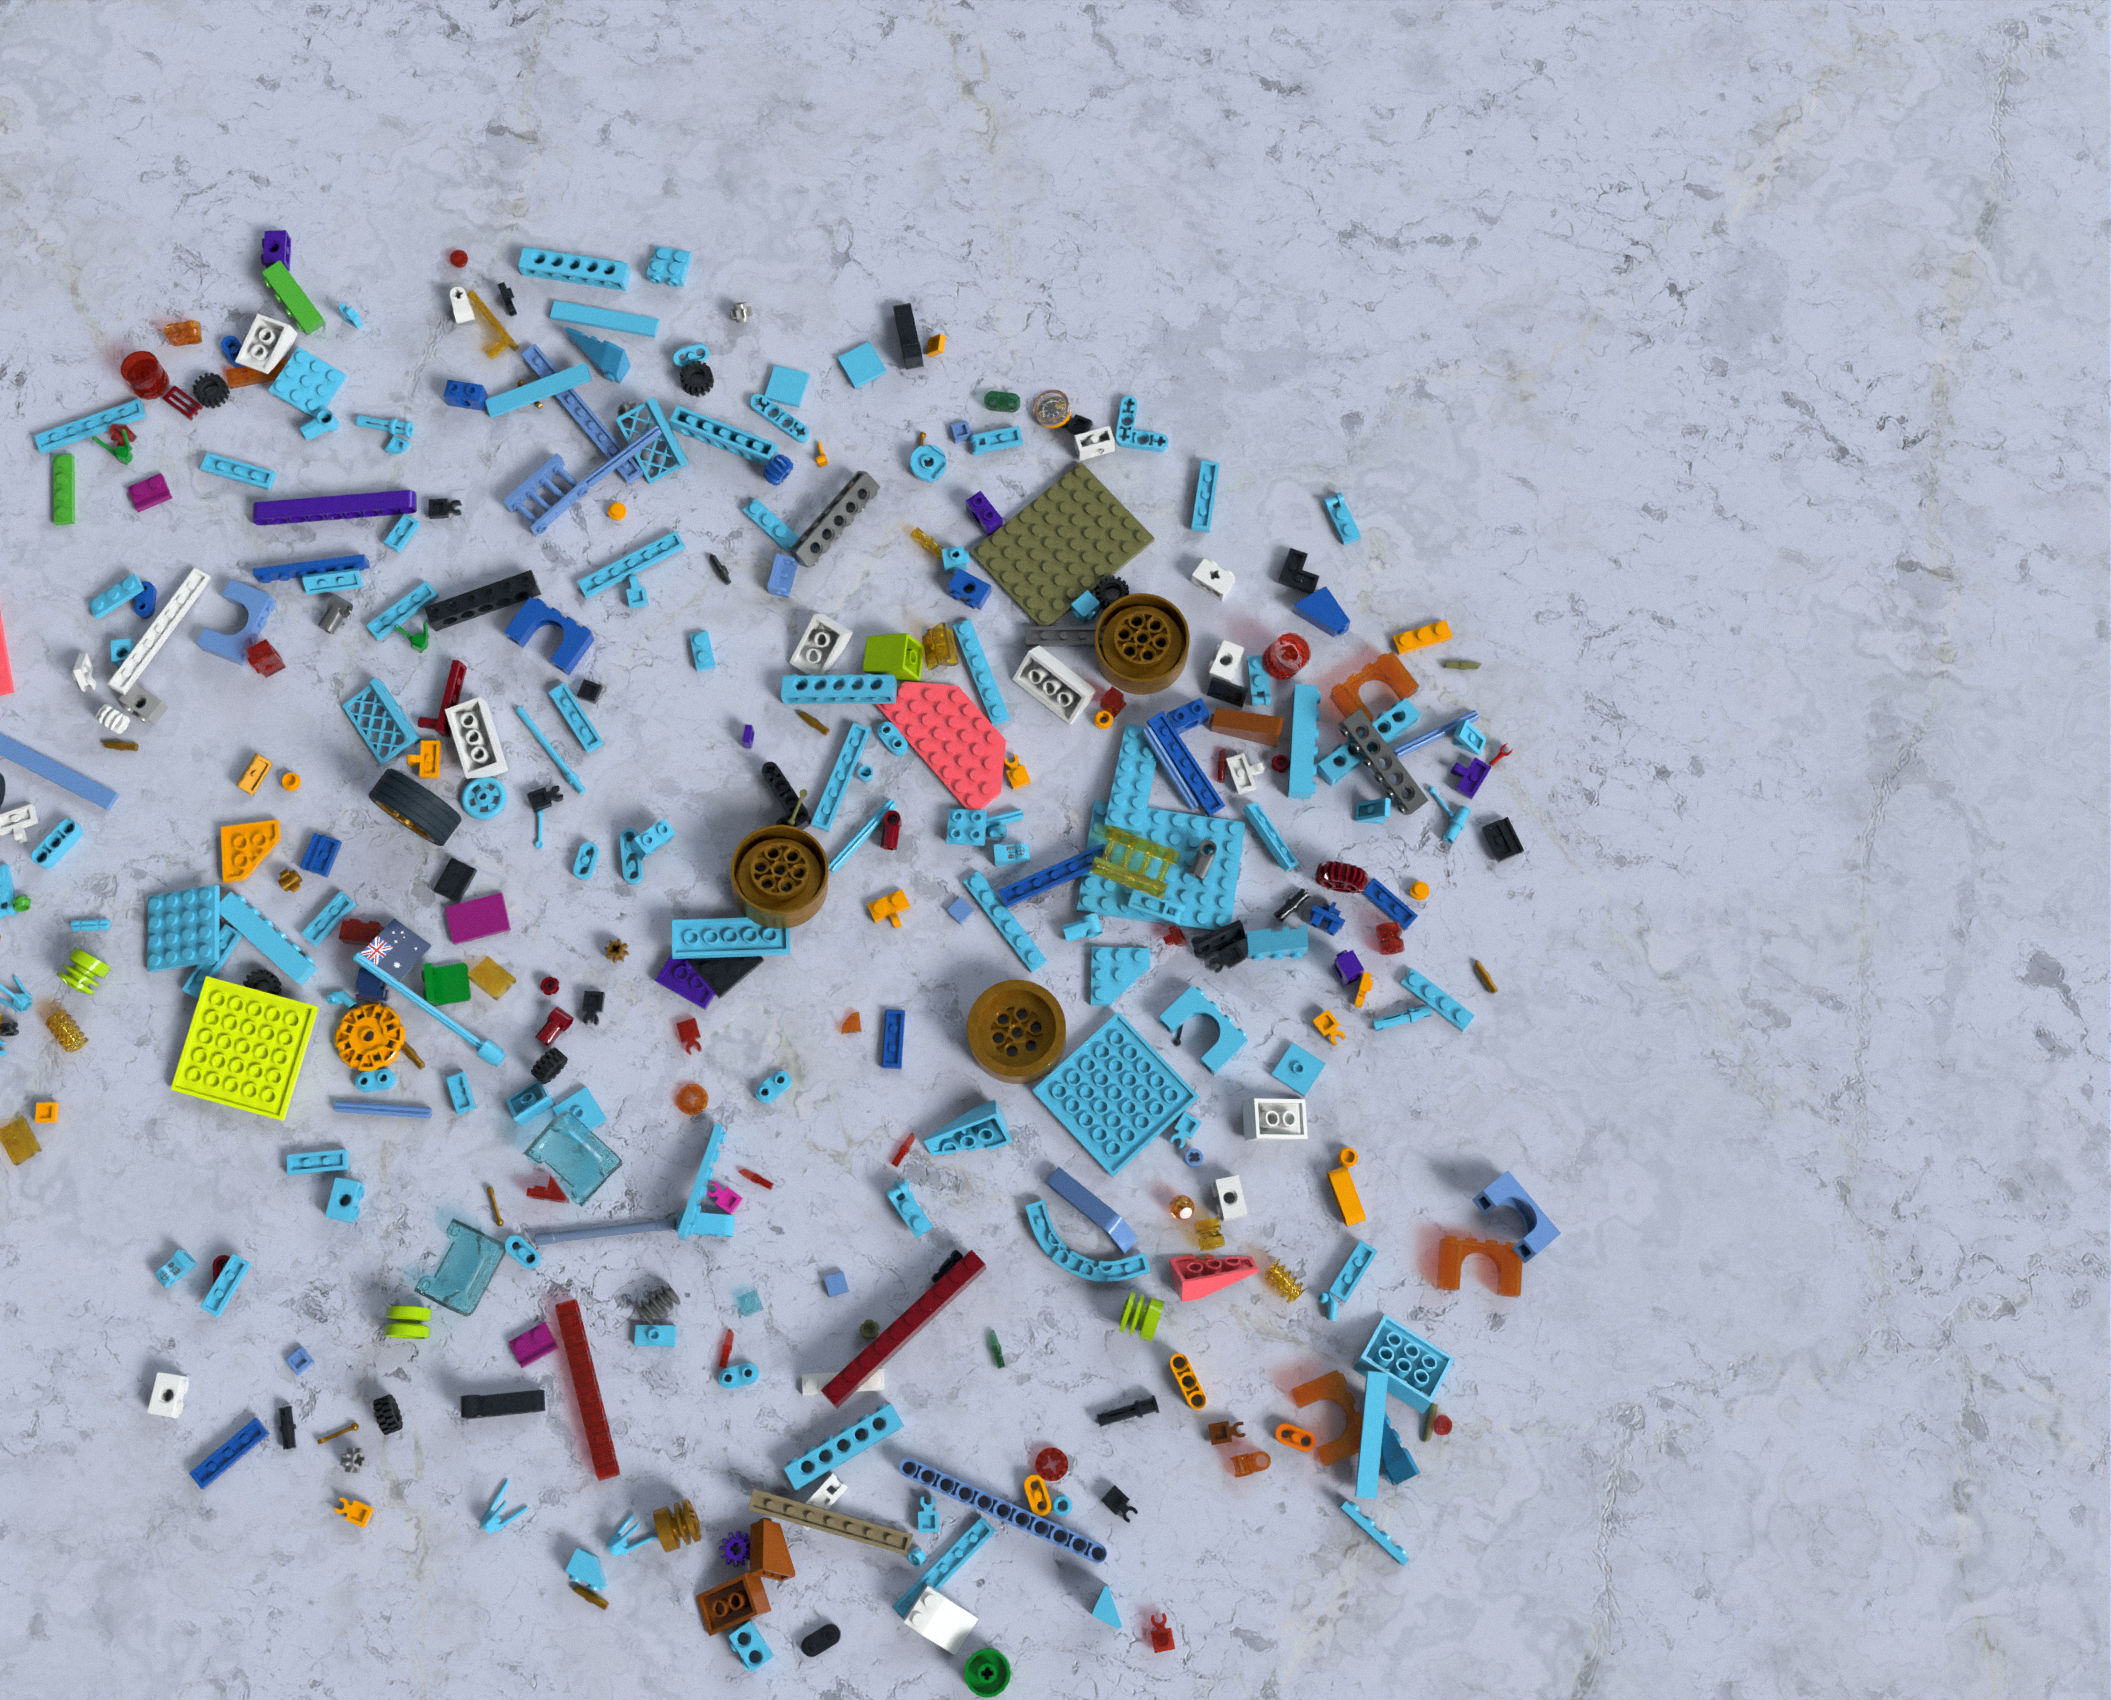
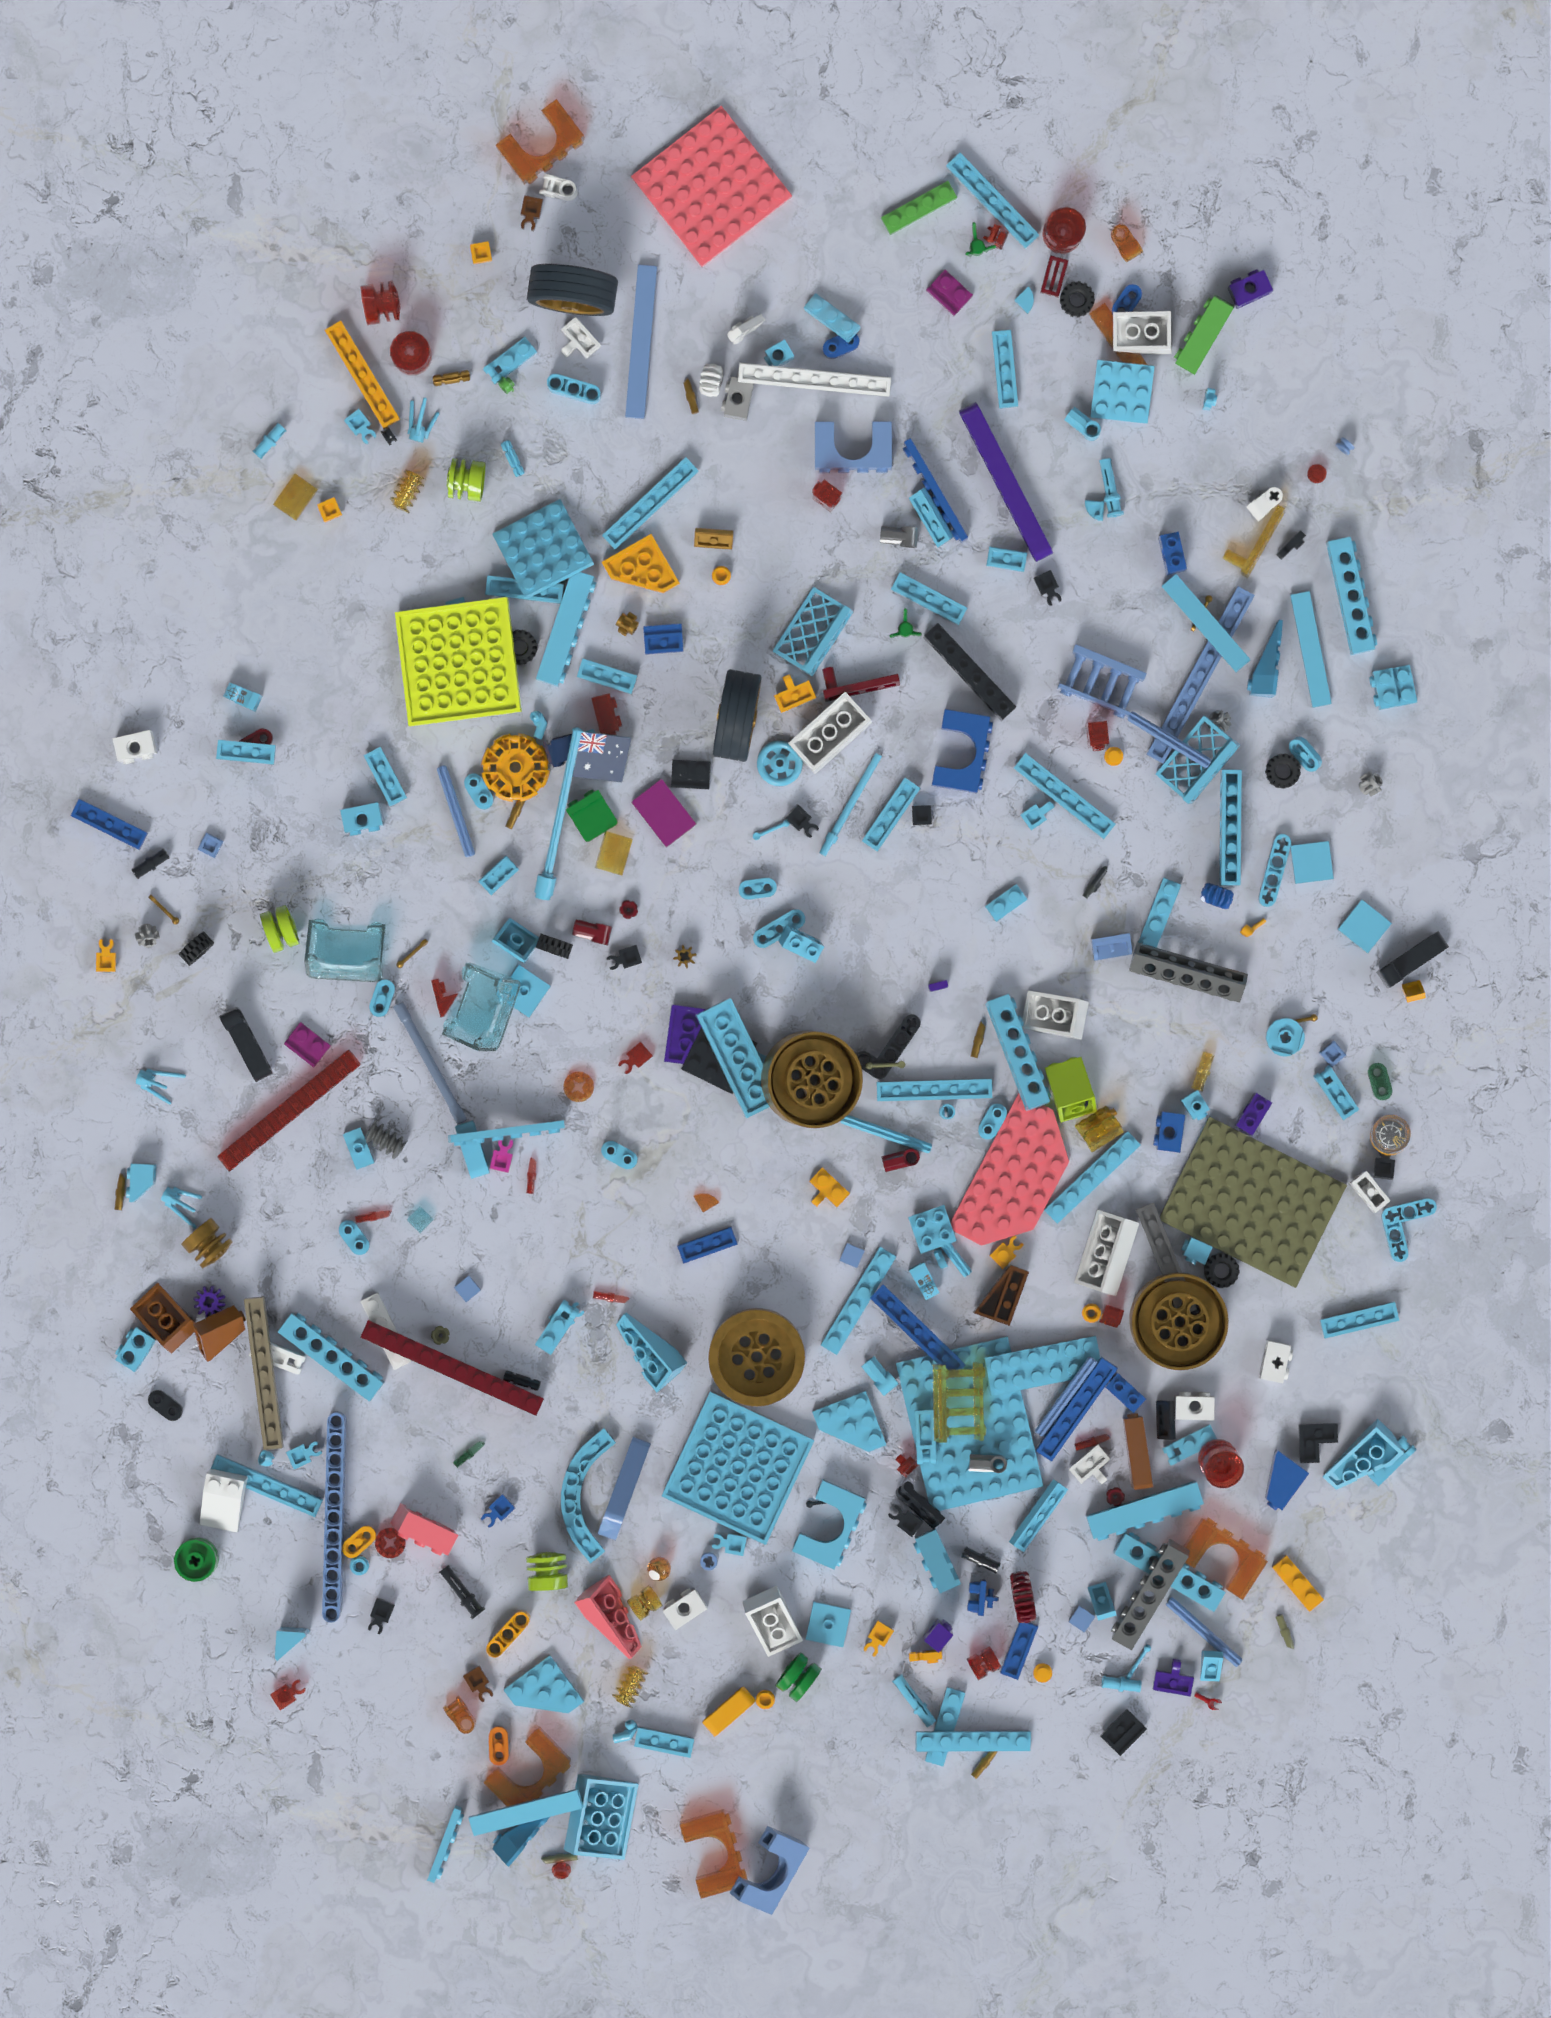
camera: 70 degrees right, 15 degrees up
(190, 433) = (1025, 300): none -> medium azure tile
(194, 818) = (650, 503): none -> medium azure plate
(447, 227) = (1345, 446): none -> medium blue bush
(589, 513) = (1097, 735): none -> clear red brick
(1052, 1423) = (423, 1530): none -> coral wedge
(1055, 786) = (1004, 1296): none -> reddish brown wedge
(1062, 1340) = (500, 1508): none -> blue plate
(1256, 1368) = (544, 1689): none -> medium azure plate
(1328, 533) = (1368, 1453): none -> medium azure wedge
(1338, 1114) = (796, 1675): none -> green wheel
(1382, 836) = (1081, 1619): none -> medium blue tile
(1460, 978) = (972, 1741): none -> medium azure plate

